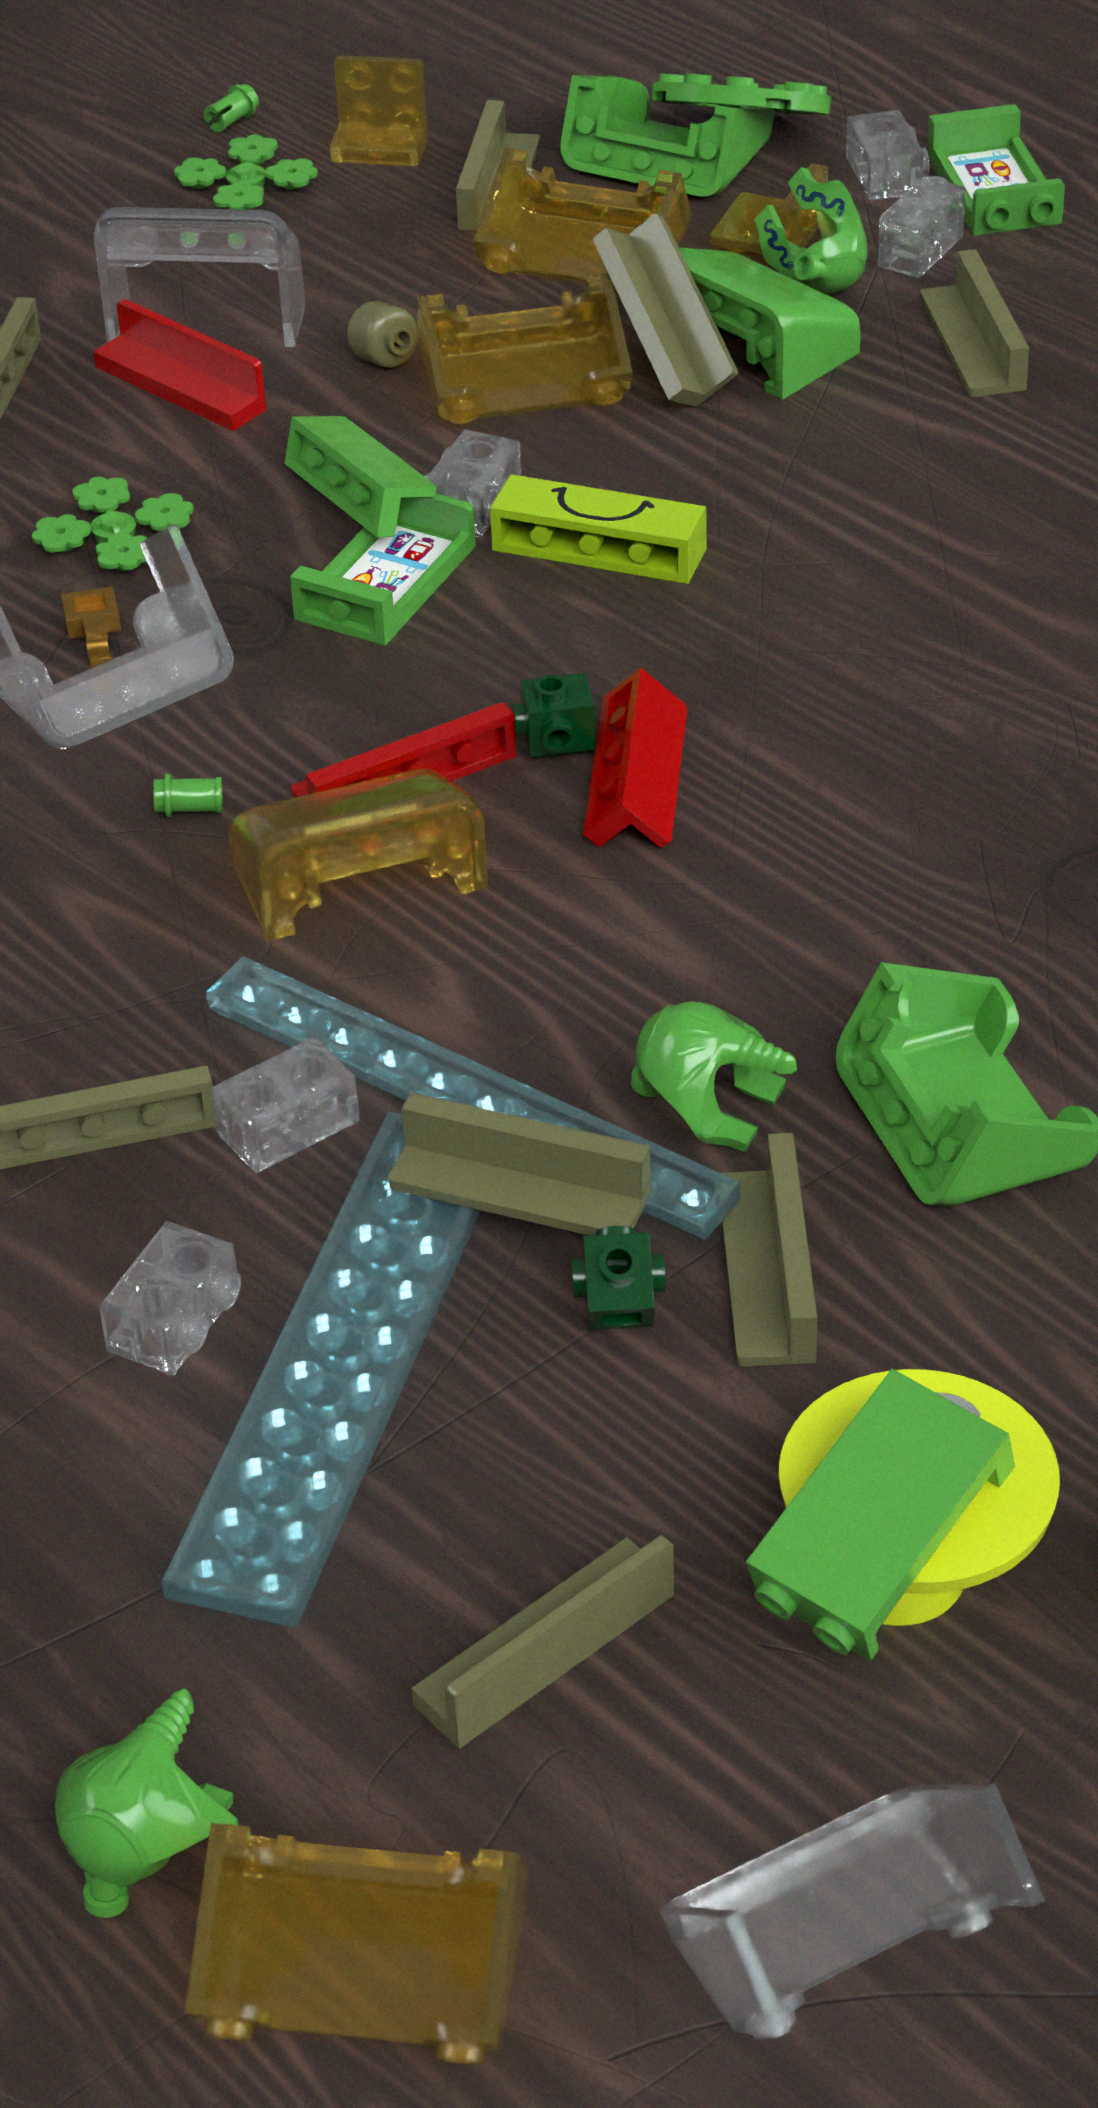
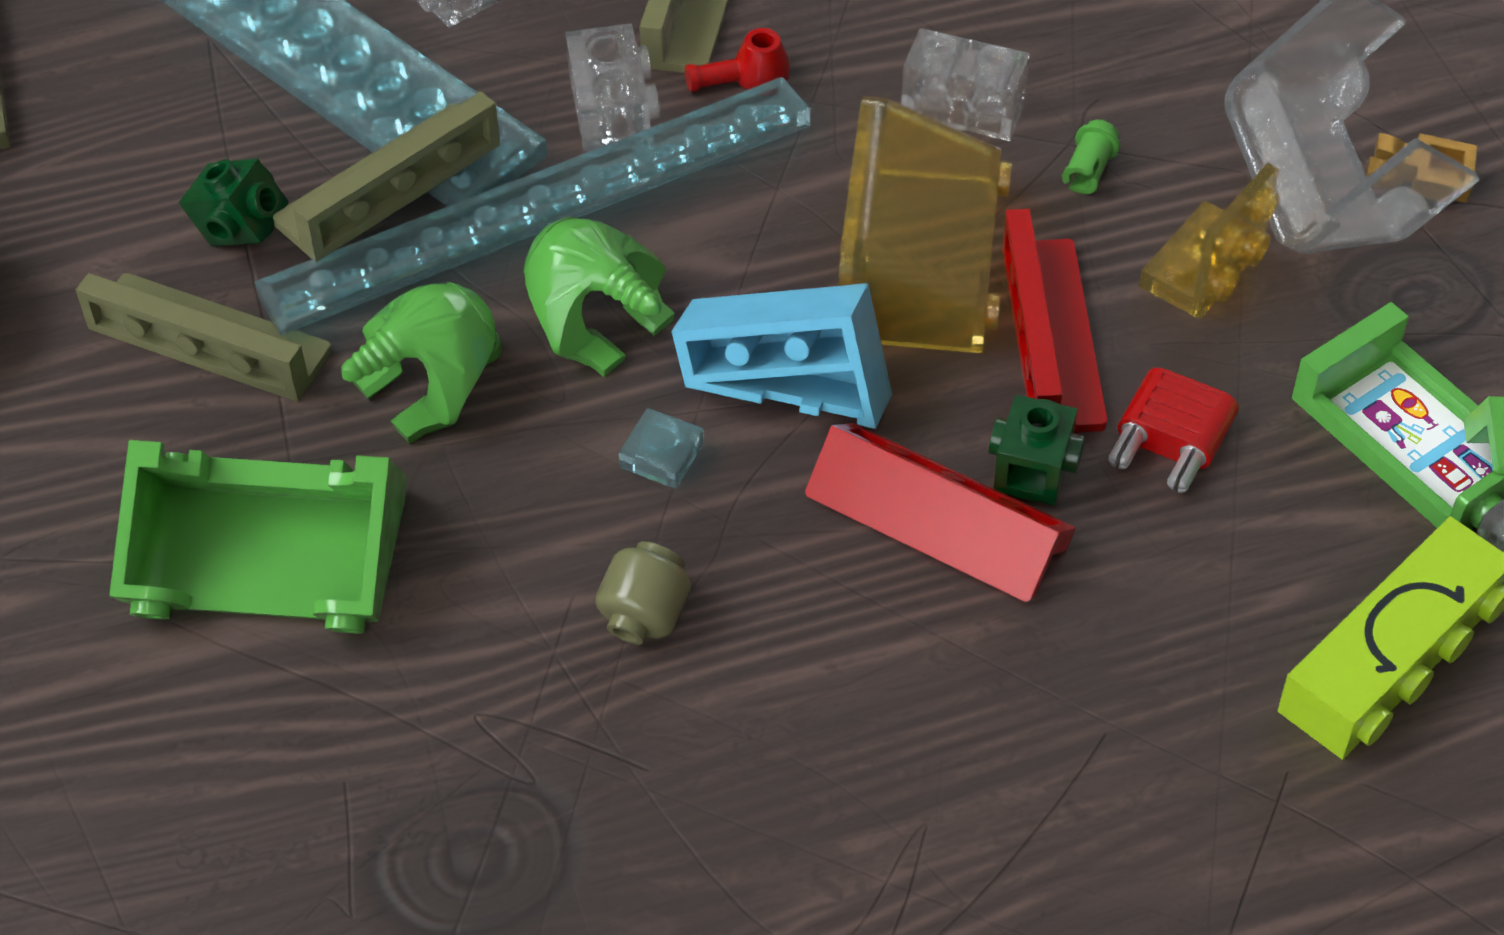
camera: 115 degrees right, 10 degrees up
(149, 877) = (966, 83): none -> clear brick
(181, 1035) = (757, 62): none -> red bar
(269, 680) = (1214, 247): none -> clear yellow bracket
(462, 677) = (1175, 421): none -> red piece
(552, 858) = (790, 348): none -> medium azure wedge
(559, 998) = (583, 257): none -> bright green piece
(684, 930) = (661, 448): none -> clear light blue plate
(845, 869) = (643, 592): none -> olive head

